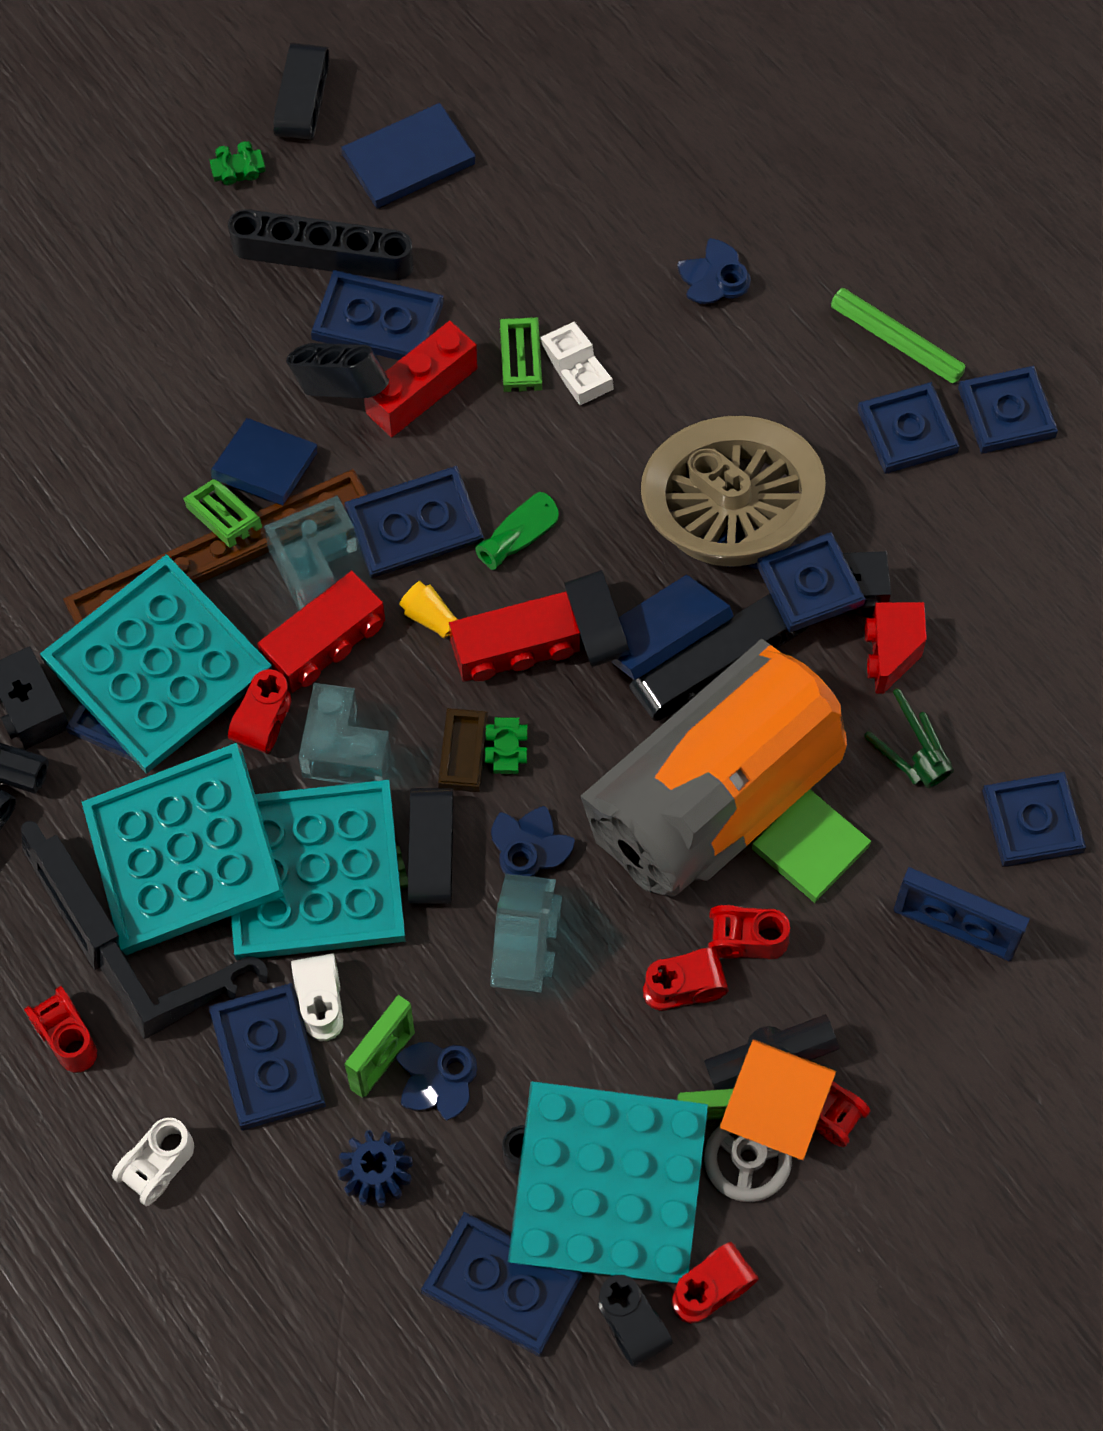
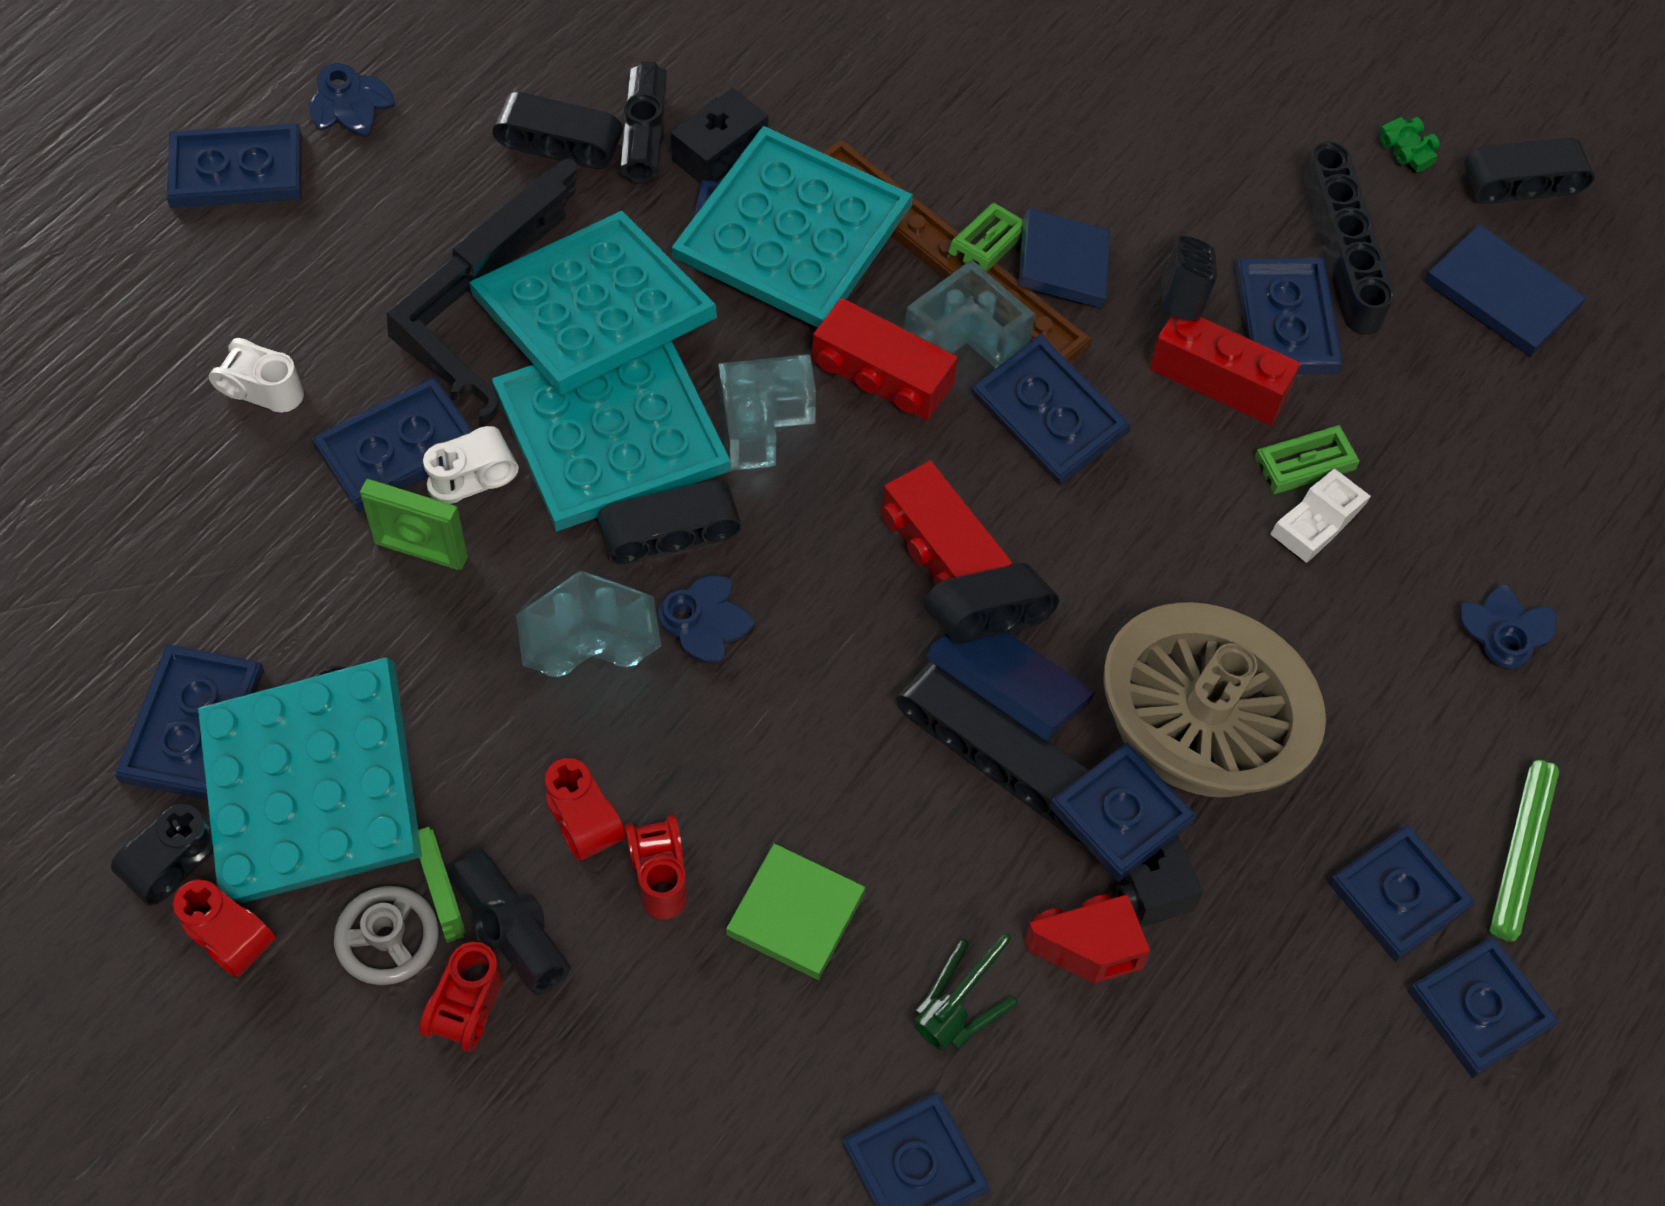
camera: 70 degrees right, 5 degrees down
(60, 1025) = (375, 265): red piece -> none
(259, 717) = (769, 329): red piece -> none
(372, 1183) = (288, 565): dark blue gear -> none
(427, 608) = (951, 444): yellow cone -> none
(432, 1082) = (402, 599): dark blue plate -> none
(463, 750) = (797, 528): dark brown tile -> none
(506, 750) = (814, 567): green piece -> none
(519, 530) = (1086, 513): green piece -> none
(718, 771) = (835, 767): piece -> none
(777, 1099) = (439, 928): orange slope -> none
(960, 914) = (738, 1089): dark blue tile -> none

